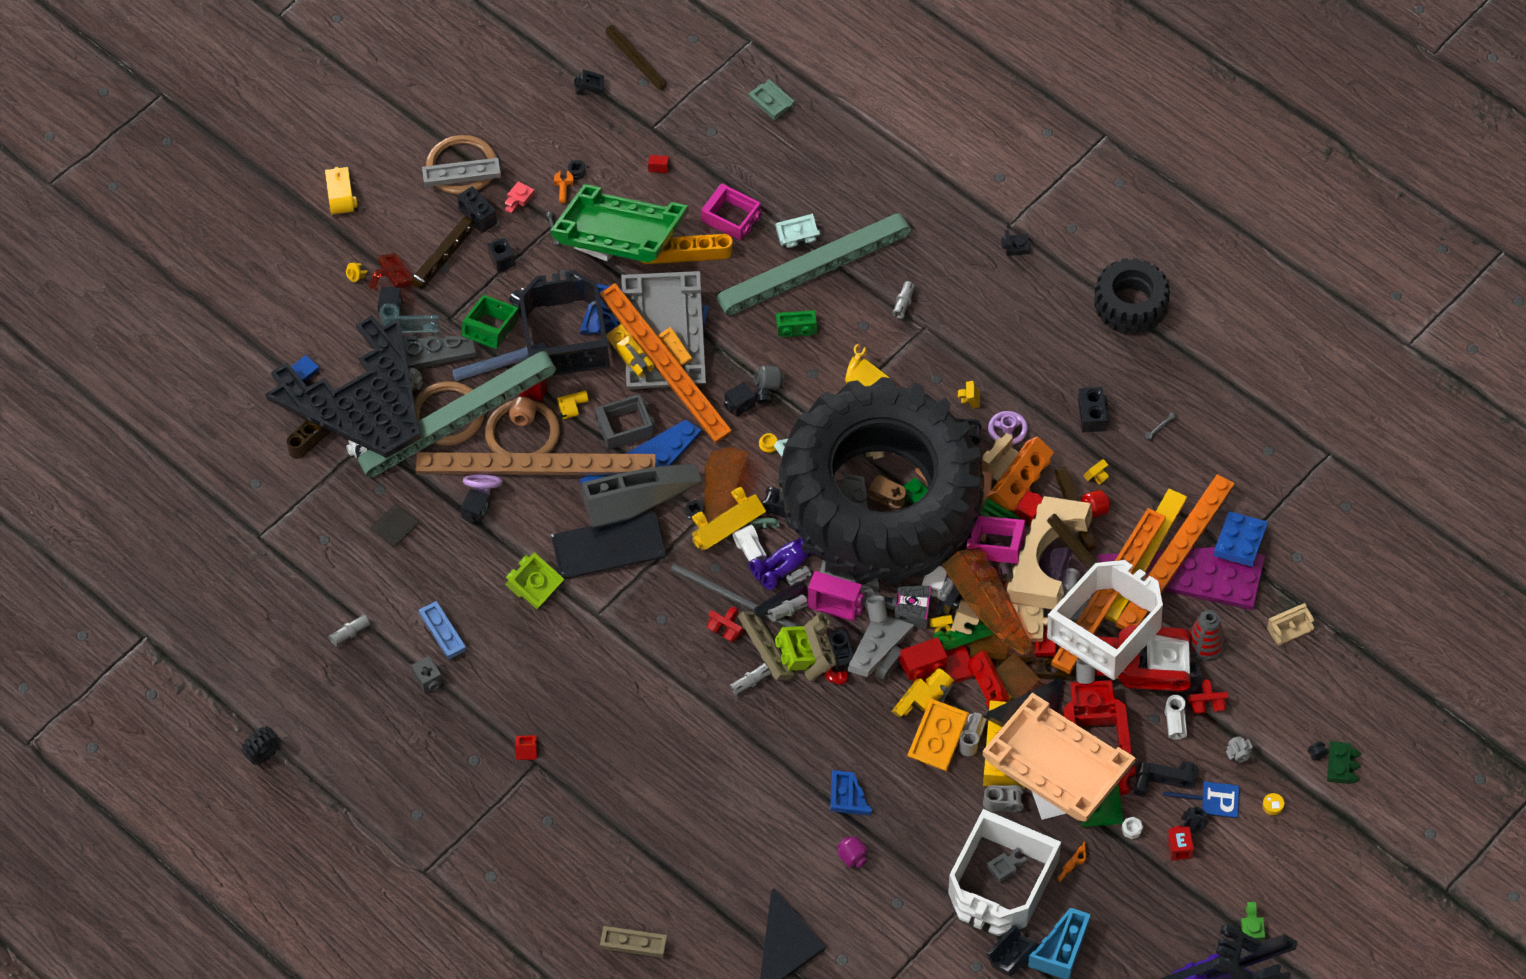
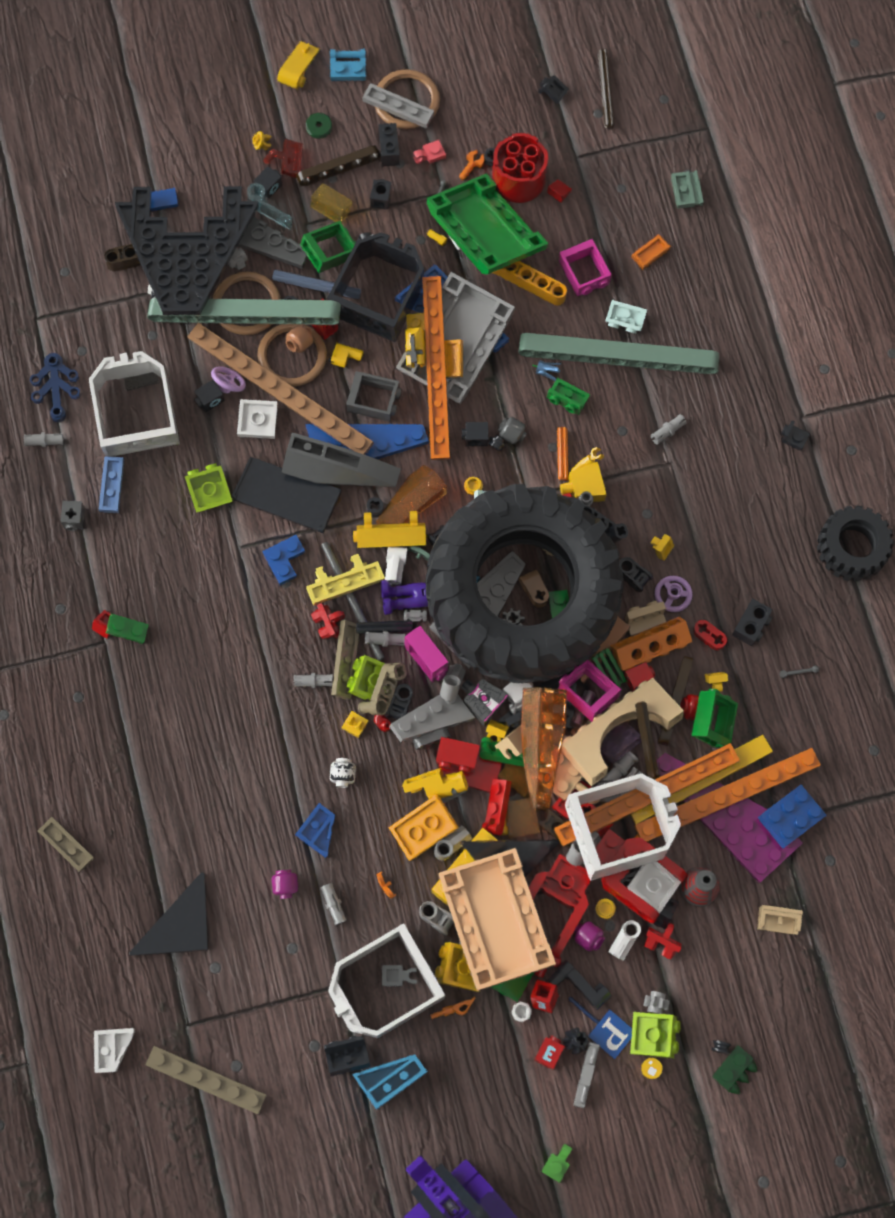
camera: 30 degrees right, 15 degrees up
(323, 578) = (55, 384): none -> dark blue plant
(387, 170) = (347, 69): none -> dark azure plate
(397, 237) = (319, 132): none -> dark green piece
(439, 580) = (141, 441): none -> white container
(461, 287) = (331, 203): none -> clear yellow hinge
(533, 500) = (257, 419): none -> white plate
(550, 736) = (127, 628): none -> green plate
(584, 262) = (439, 238): none -> yellow piece
(613, 160) = (520, 181): none -> red brick
(641, 600) = (279, 557): none -> blue plate
(725, 574) = (331, 587): none -> light yellow hinge
(760, 312) = (543, 366): none -> flat silver piece
(778, 168) = (650, 252): none -> orange tile
(813, 693) = (355, 724): none -> yellow tile
(824, 369) = (562, 443): none -> orange axle
(833, 736) = (342, 772): none -> white head
(906, 843) = (333, 904): none -> light grey pin
(945, 806) = (384, 886): none -> orange piece
(1054, 822) = (454, 968): none -> yellow plate
(1064, 441) = (713, 631): none -> red beam
(1119, 499) = (725, 718): none -> green window
(1140, 705) = (605, 908): none -> yellow plate
(1142, 800) = (544, 996): none -> red brick
(1144, 733) = (589, 936): none -> magenta head
(1223, 841) = (586, 1075): none -> light grey piece
(1256, 774) = (654, 1035): none -> lime plate

